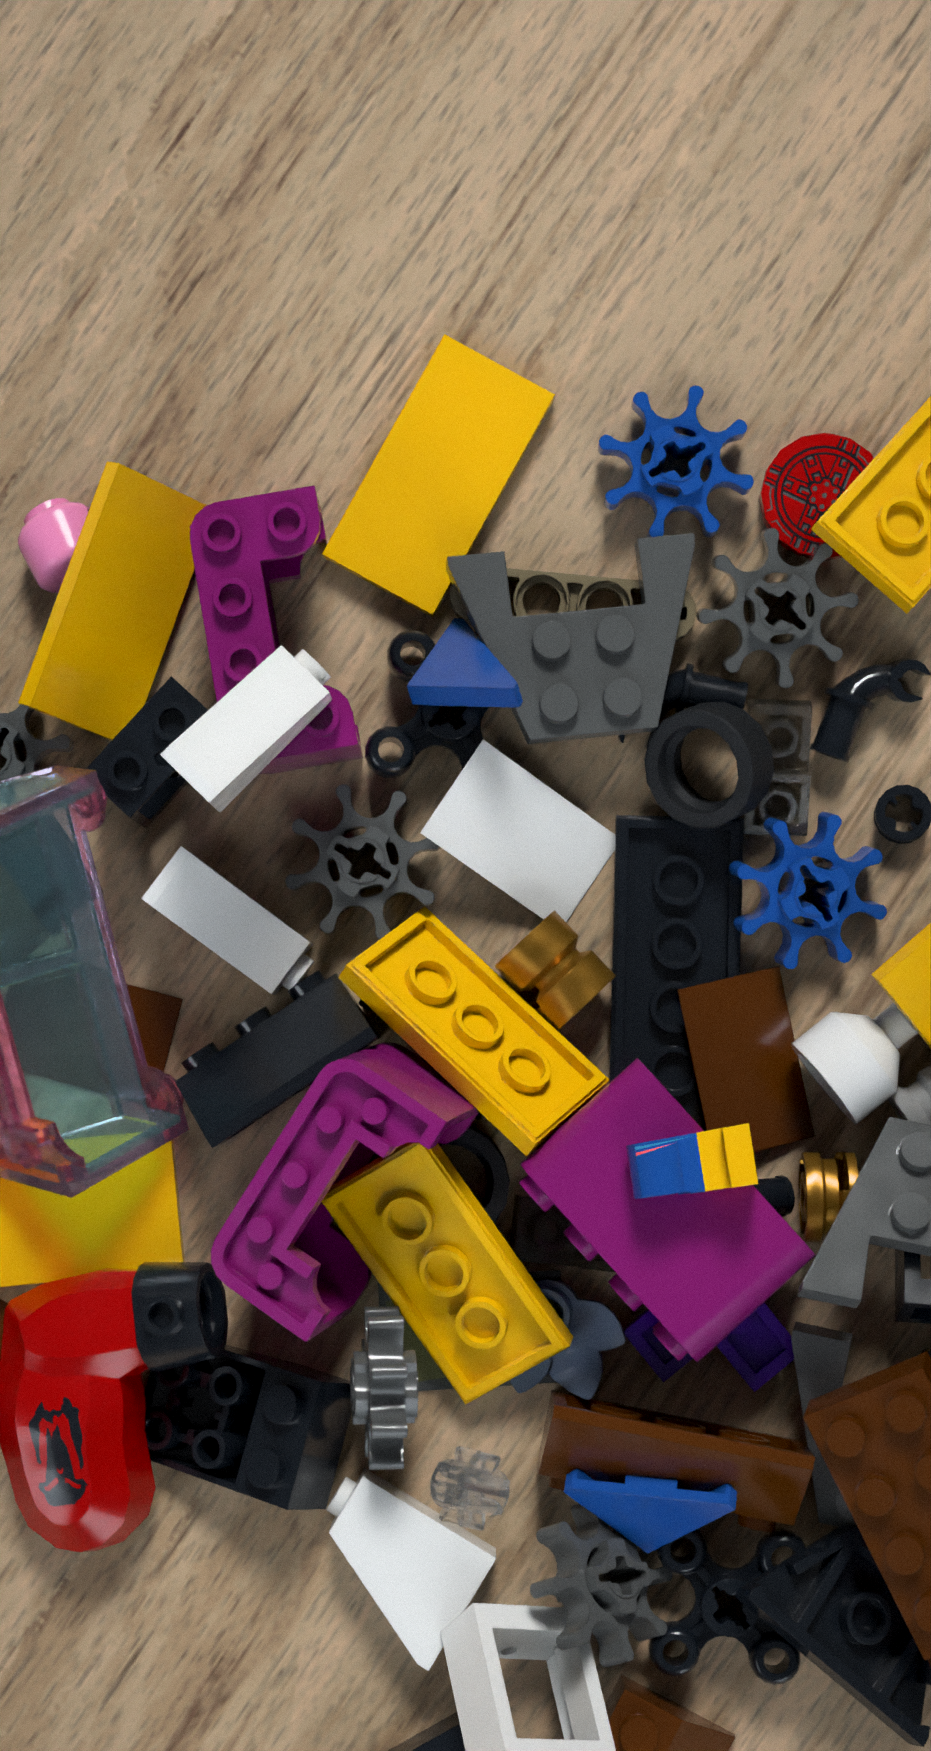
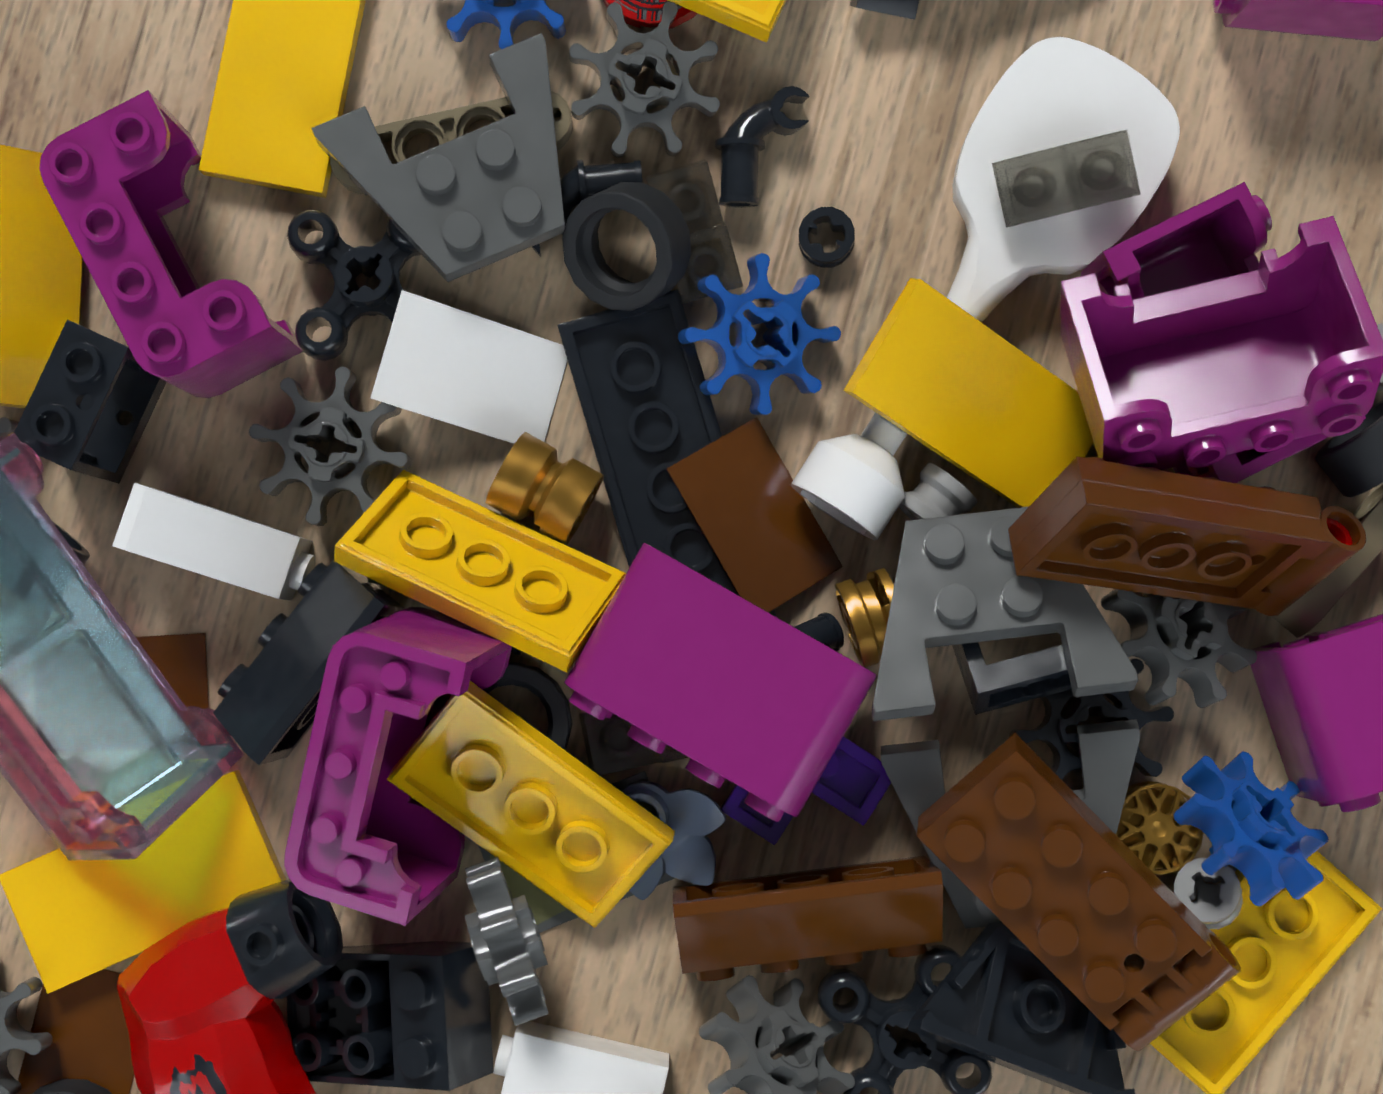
camera: 25 degrees left, 0 degrees up
(250, 726) = (144, 339): white slope -> none
(463, 673) = (359, 233): blue tile -> none
(469, 1488) = (623, 1007): clear gear -> none
(649, 1509) = (798, 971): blue tile -> none
(693, 1162) = (726, 623): leg -> none

